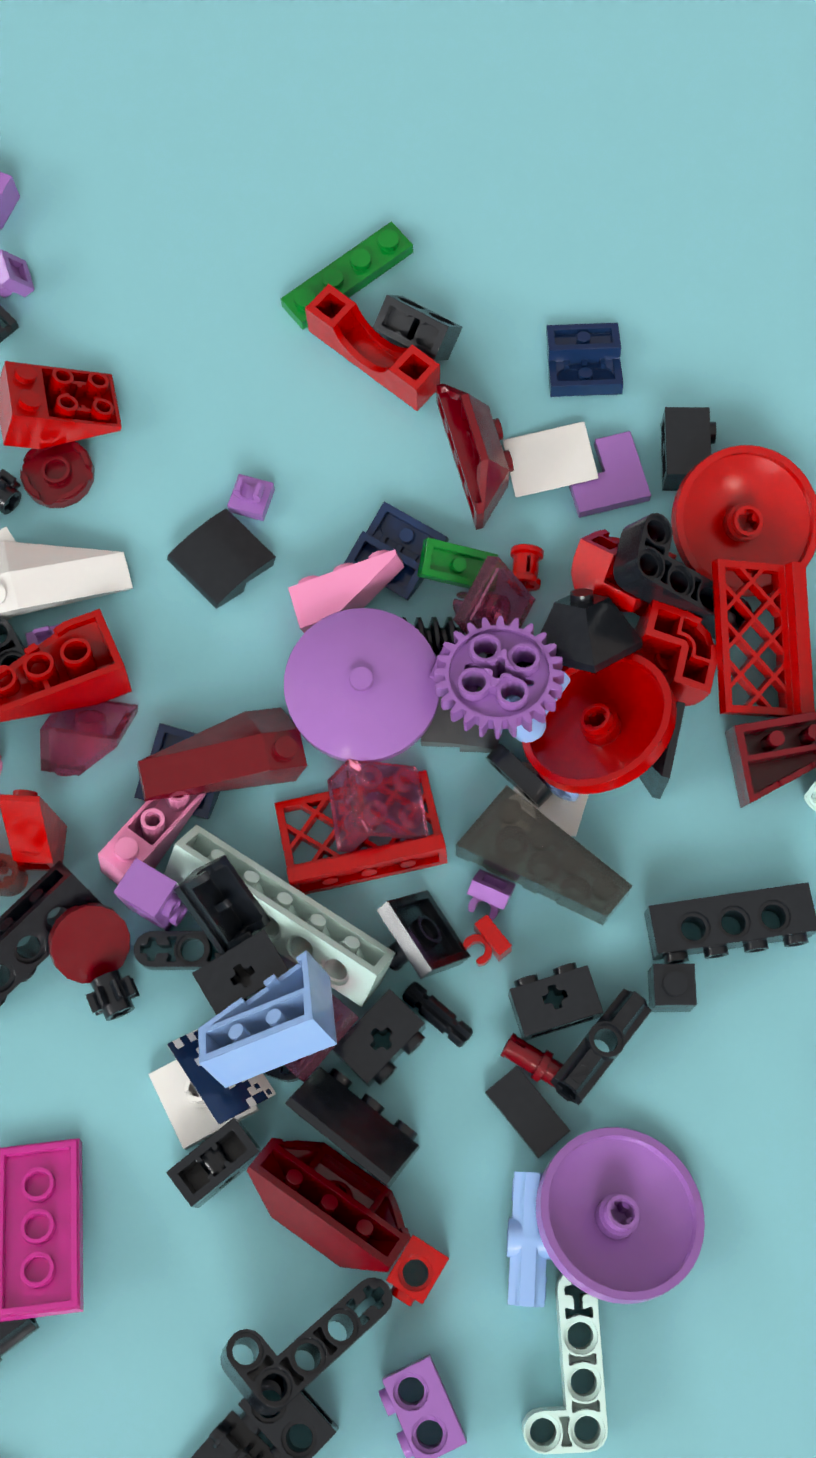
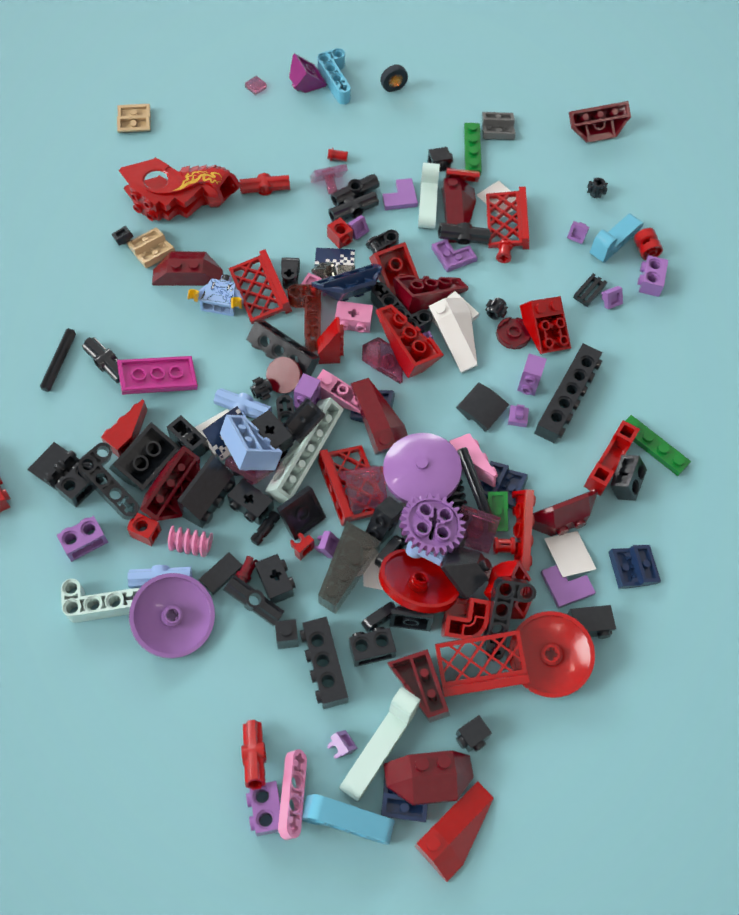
camera: 75 degrees right, 10 degrees down
(144, 1040) = (245, 403): none -> light blue piece
(174, 450) = (531, 374): none -> medium lavender brick
(178, 1309) = (125, 429): none -> red slope
(247, 1262) = (145, 457): none -> black slope
(283, 450) = (547, 427): none -> black brick
(403, 592) = (473, 480): none -> black axle
(457, 1170) = (189, 543): none -> bright pink piece
(462, 771) = (384, 519): none -> black brick
(503, 524) = (523, 528): none -> red wing
(648, 811) = (378, 617): none -> black beam
(715, 831) = (374, 652): none -> black brick

